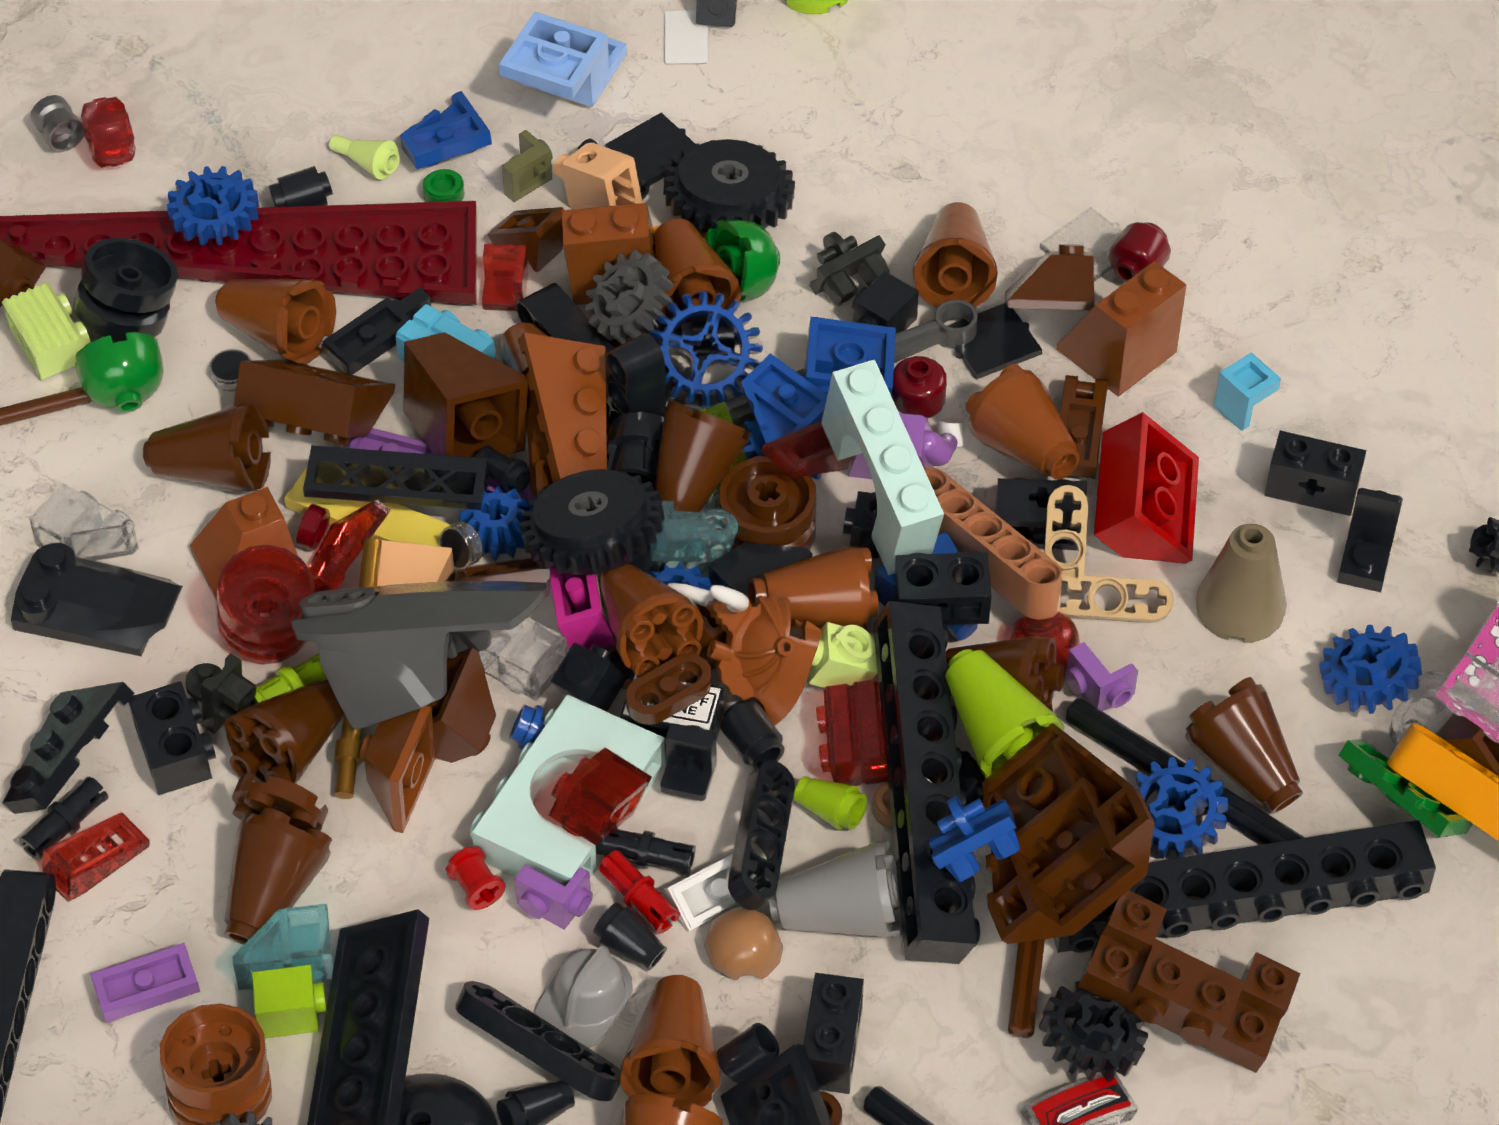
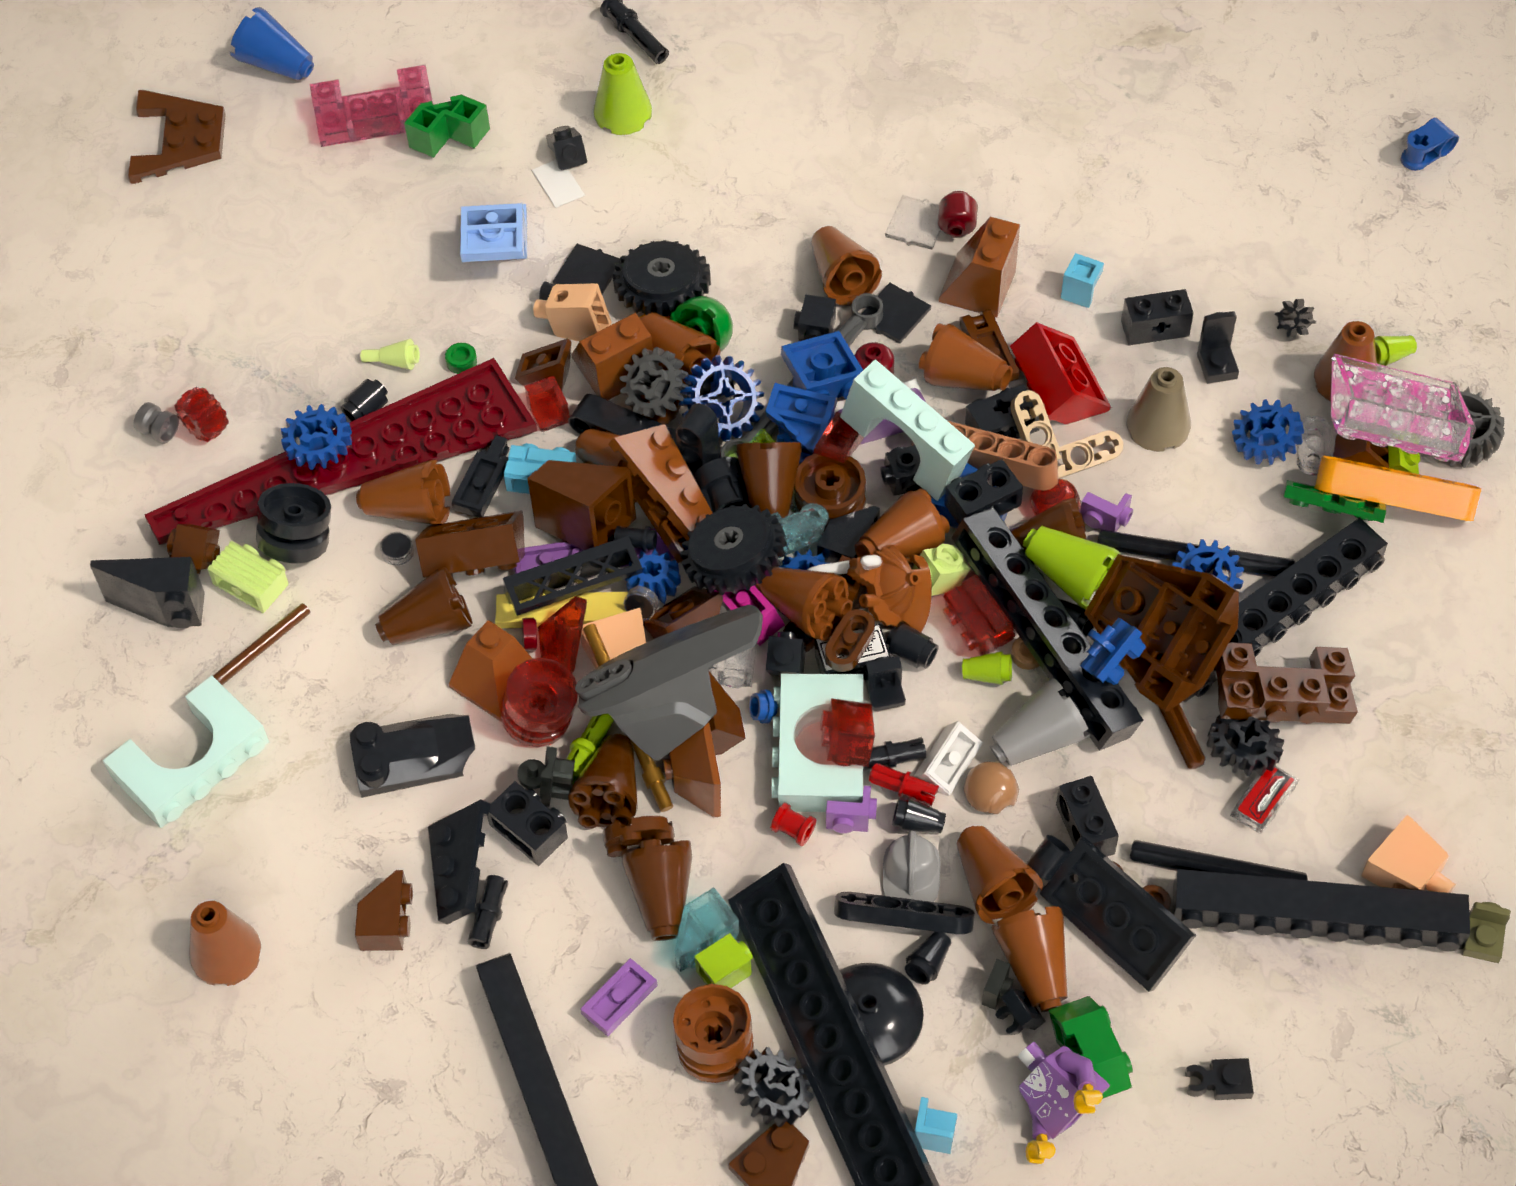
camera: 25 degrees left, 5 degrees up
(78, 877) = (523, 947): clear red slope -> none
(83, 525) = (369, 702): clear slope -> none
(120, 372) = (326, 584): green cylinder -> none
(445, 134) = (440, 317): blue wing -> none
(528, 169) = (514, 318): olive bracket -> none
(770, 838) = (963, 710): black beam -> none
(842, 263) = (771, 313): pearl dark grey hips -> none
(1056, 281) = (920, 257): reddish brown slope -> none
(1247, 745) = (1226, 515): reddish brown cone -> none

